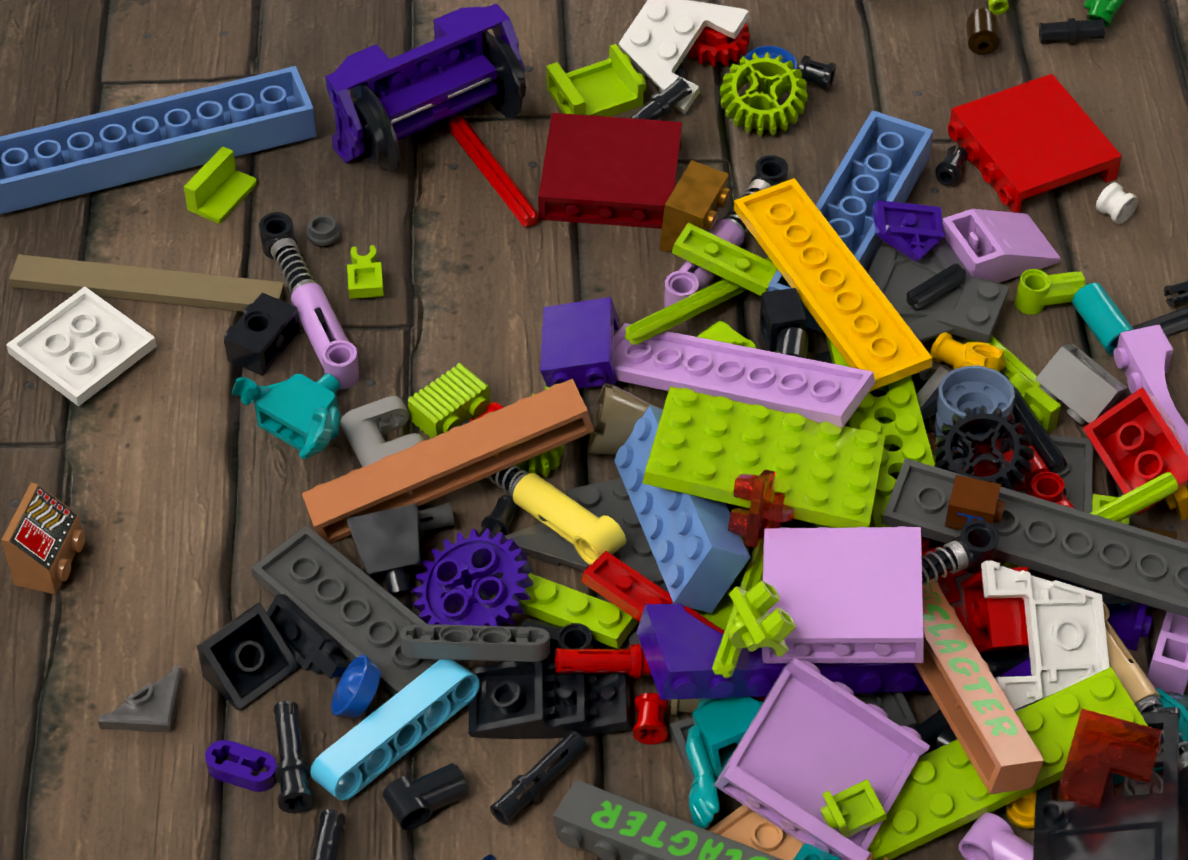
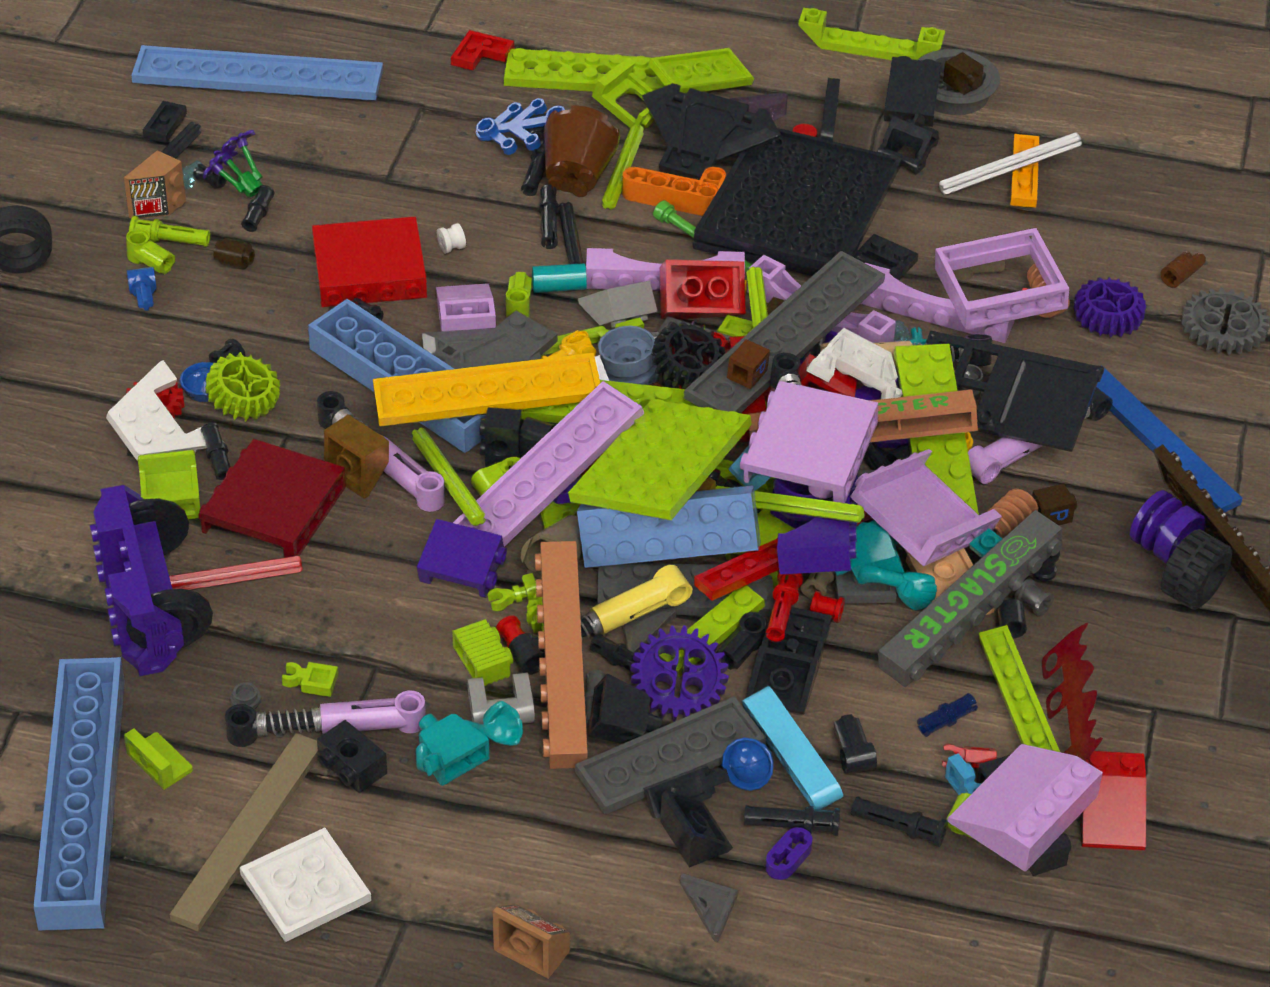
camera: 75 degrees left, 5 degrees down
(475, 642) = (726, 706): dark grey beam -> none
(509, 806) = (864, 688): black pin -> none
(724, 259) = (424, 446): lime plate -> none
(754, 624) = (852, 472): lime hips -> none
(760, 492) = (725, 460): clear red hips -> none
(852, 809) = (960, 504): lime bracket -> none
(908, 227) = (444, 339): dark purple slope -> none
(936, 286) = (503, 343): black axle -> none
(1106, 746) = (961, 366): clear red panel -> none

